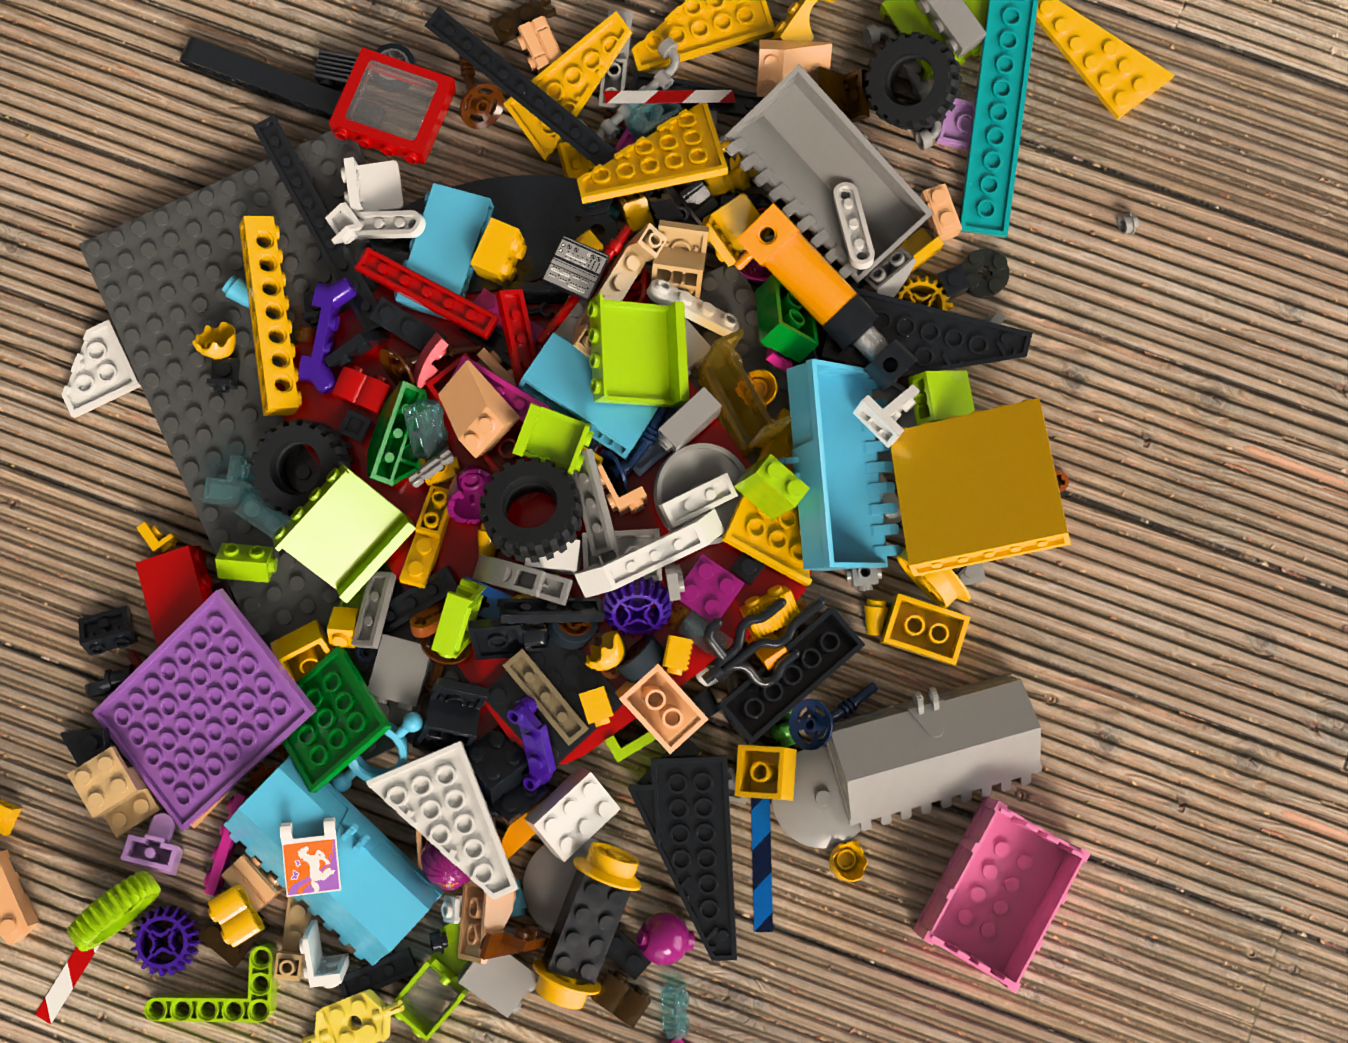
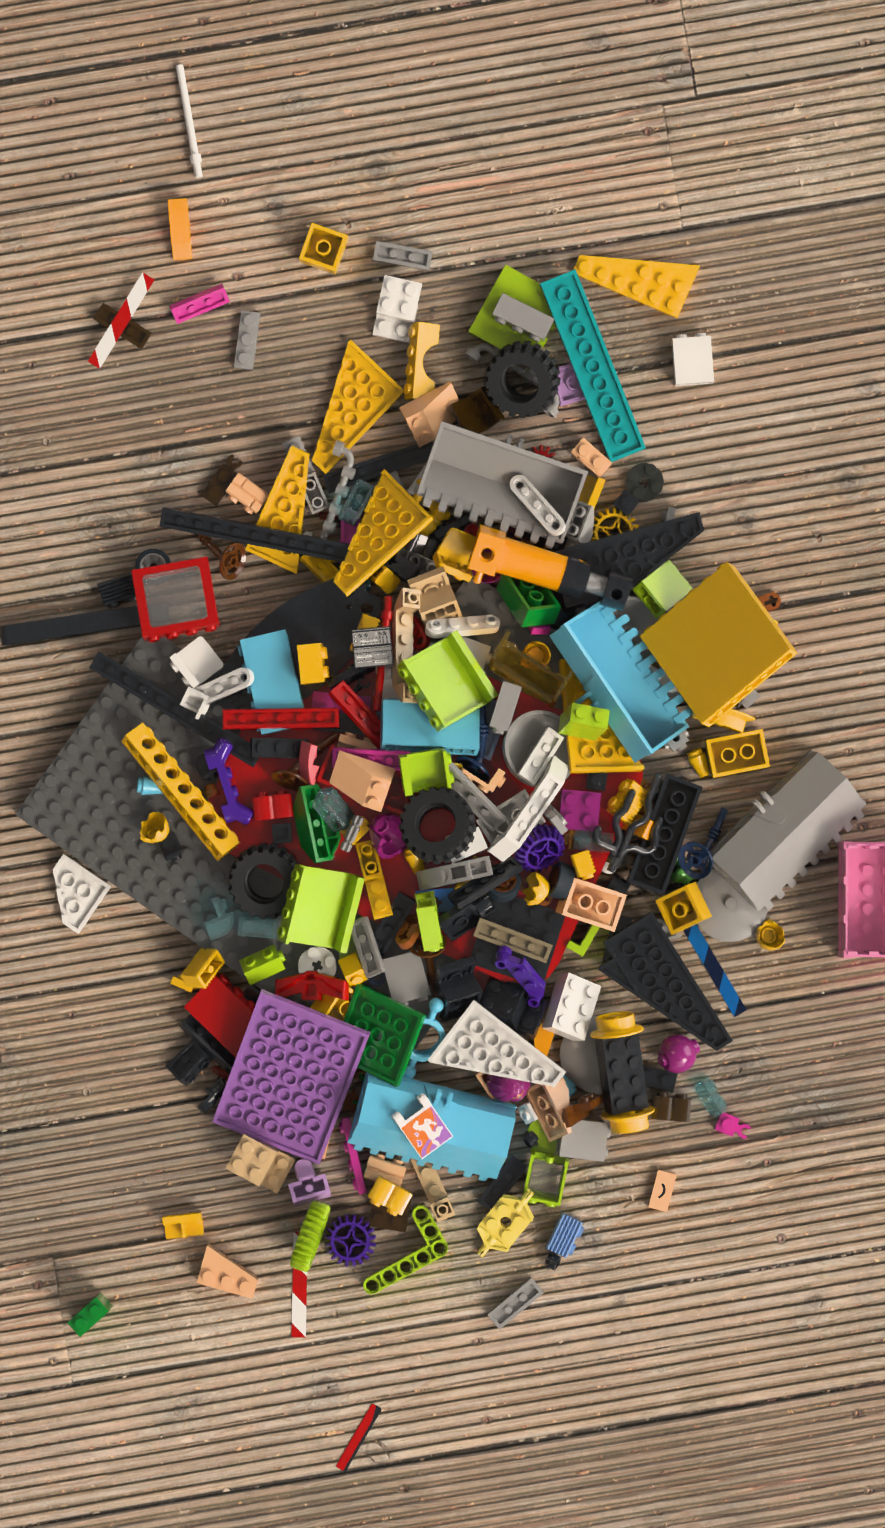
camera: 25 degrees left, 5 degrees up
(86, 743) = (222, 1144): black wing -> none
(138, 617) = (208, 1043): none -> black plate
(178, 530) = (202, 968): none -> yellow brick
(285, 619) = (312, 986): none -> red plate
(294, 597) = (314, 954): none -> white plate
(321, 970) = (467, 1198): white bracket -> none
(355, 347) = (255, 778): black wing -> none
(596, 706) = (549, 927): yellow brick -> none
(669, 96) = (360, 484): sticker -> none
(883, 421) = (632, 633): white bracket -> none
(1111, 170) = (692, 360): none -> white brick
(1127, 223) = (724, 391): light grey plate -> none

